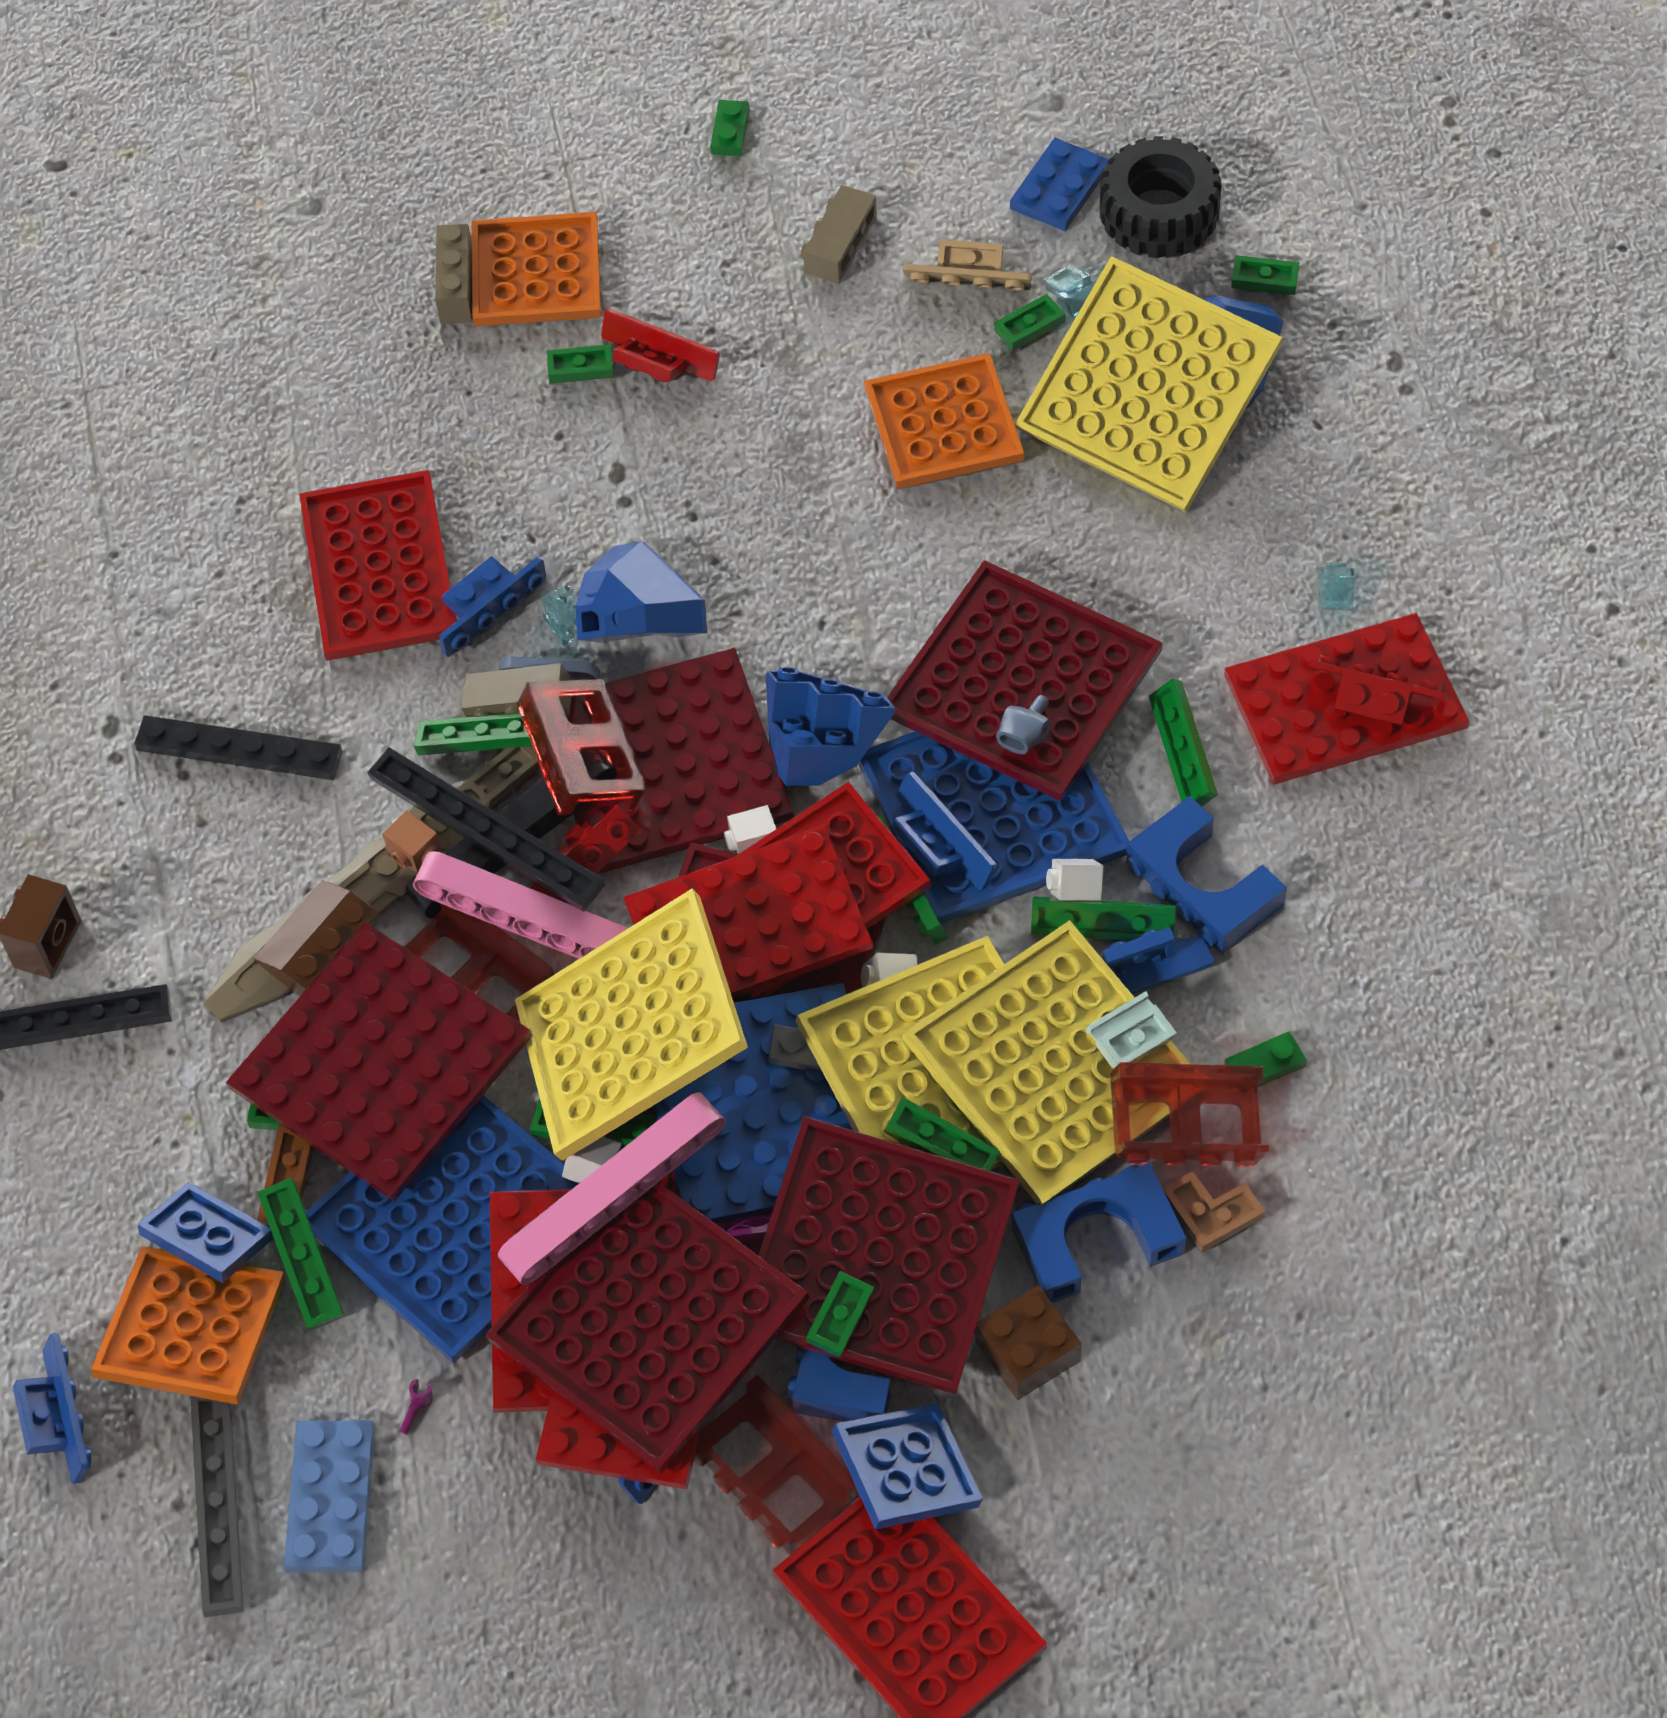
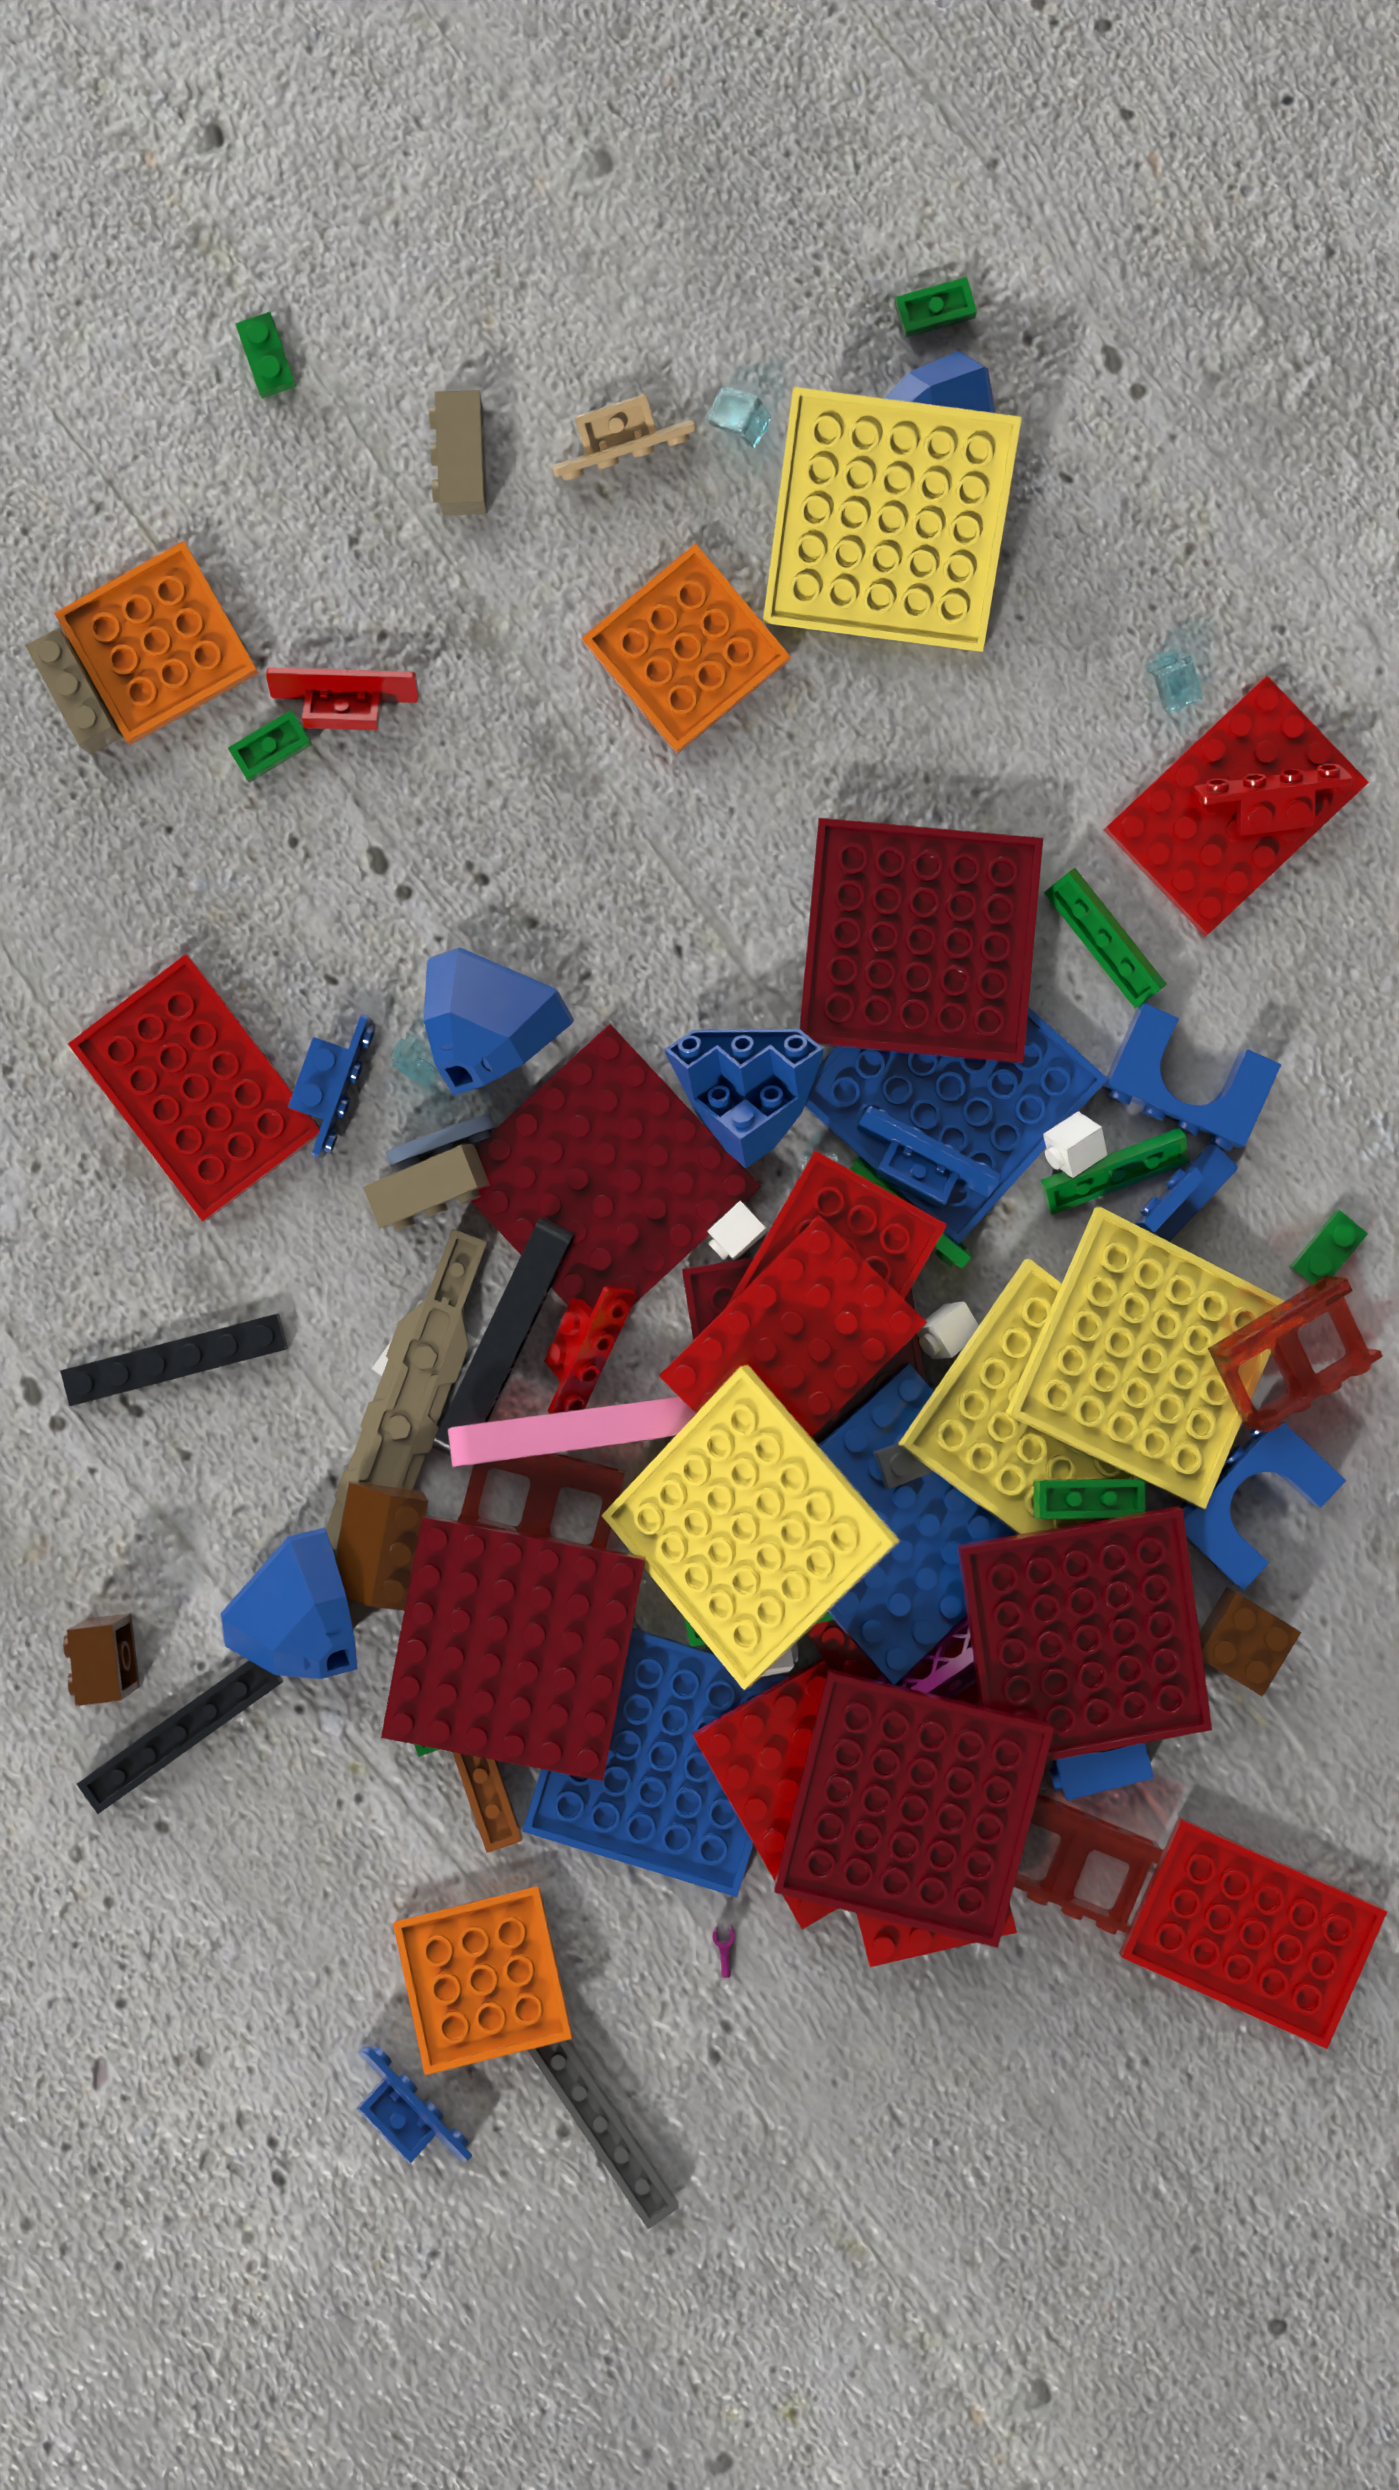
camera: 35 degrees left, 30 degrees up
(205, 1232) = (445, 1886): blue plate -> none
(215, 954) = (294, 1612): none -> blue brick
(300, 1254) = (546, 1866): green plate -> none
(329, 1496) = (694, 2065): medium blue plate -> none
(410, 841) = (416, 1403): nougat brick -> none
(471, 734) = (416, 1243): green plate -> none
(486, 829) = (484, 1364): black plate -> none
(560, 743) = (514, 1242): clear red window -> none
(611, 1188) = (826, 1714): bright pink beam -> none
(839, 1314) = (1085, 1723): green plate -> none
(906, 1466) = (1197, 1815): blue plate -> none
(1023, 727) = (957, 1007): sand blue piece -> none
(1029, 322) = (716, 480): green plate -> none
(1059, 184) = (660, 275): blue plate -> none
(1131, 1031) = (1210, 1299): light aqua plate -> none
(1160, 166) = (792, 208): black tyre -> none
(1210, 1219) = (1350, 1439): medium nougat plate -> none

